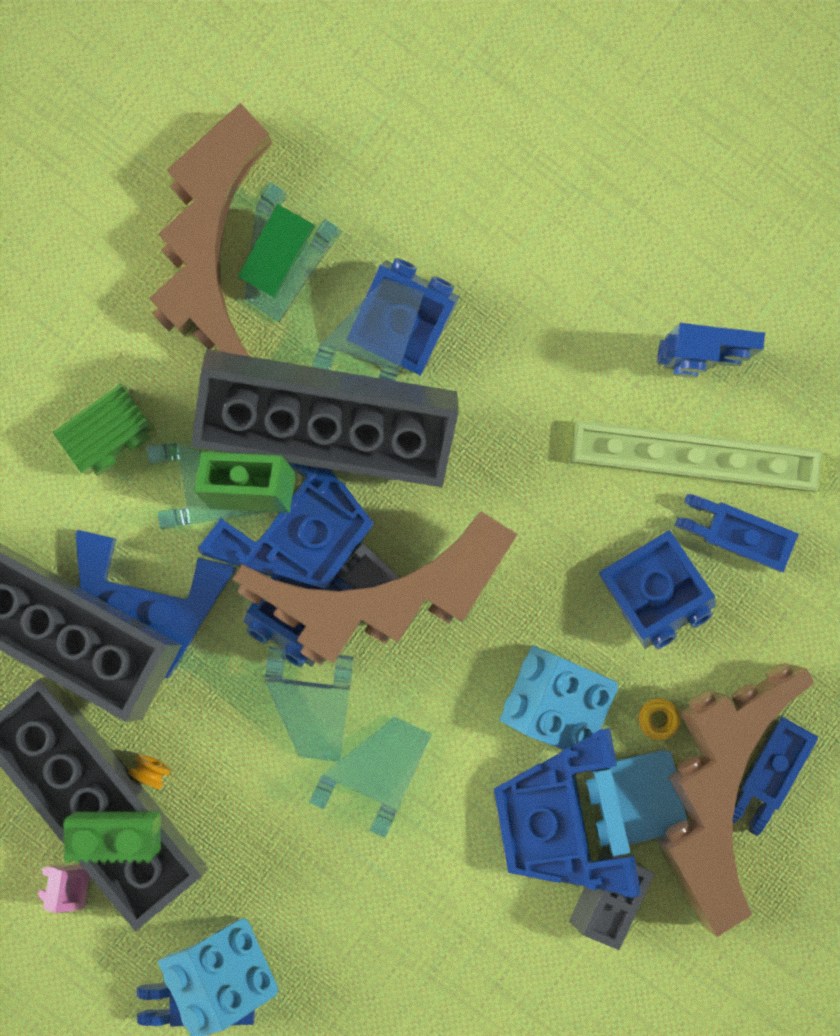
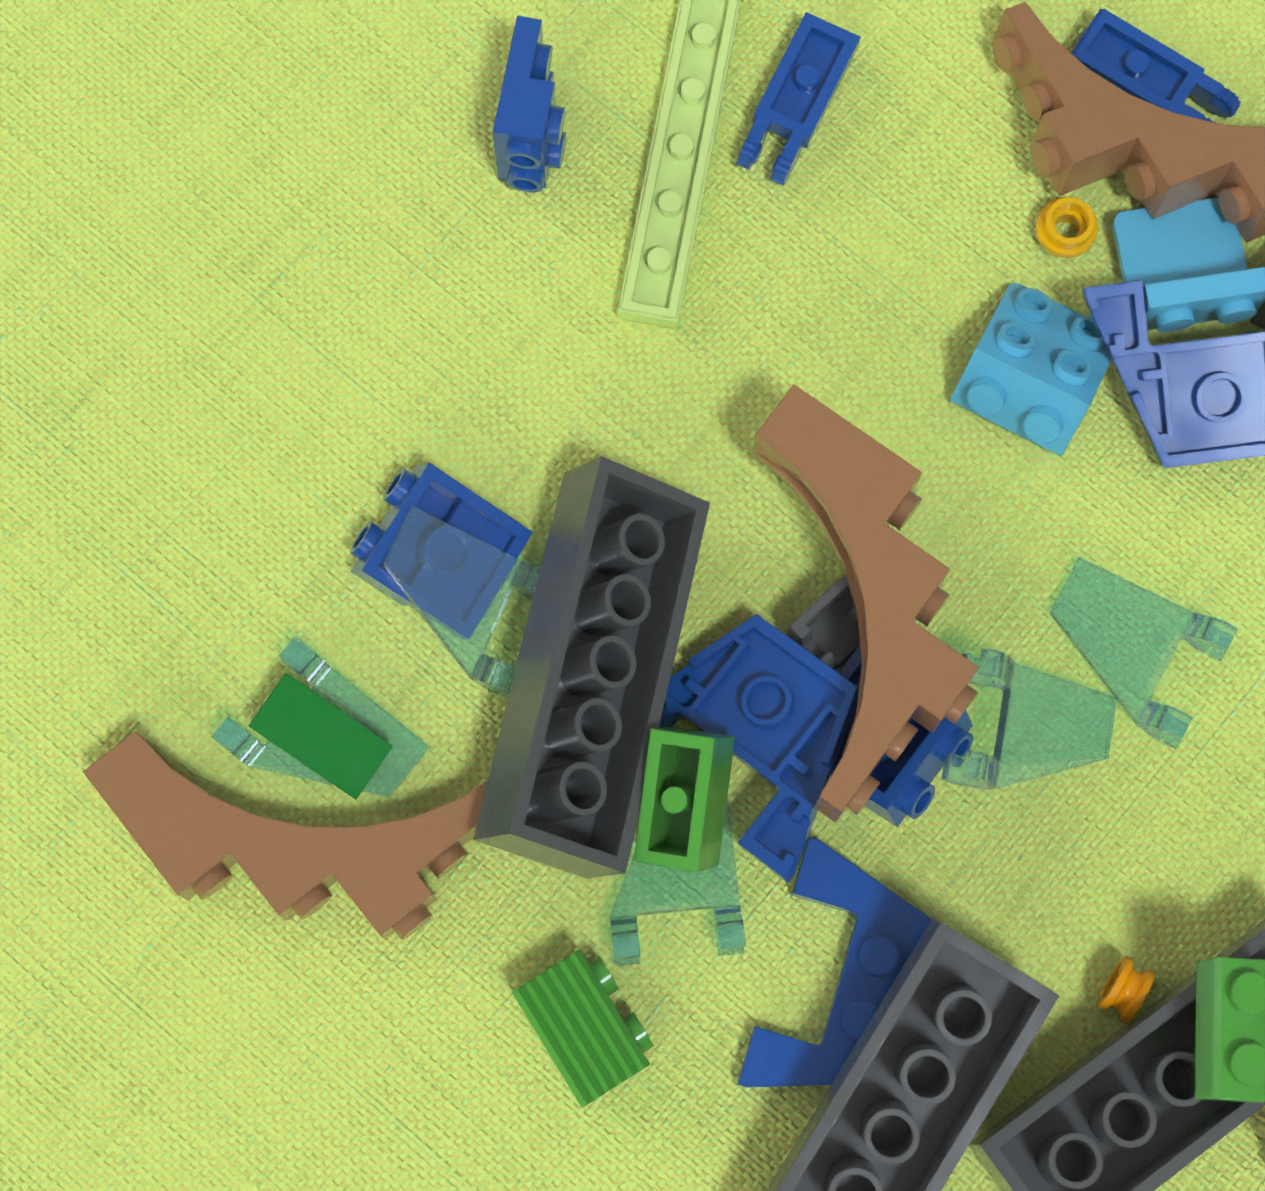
camera: 90 degrees left, 10 degrees down
(659, 591) = (879, 210): blue plate -> none

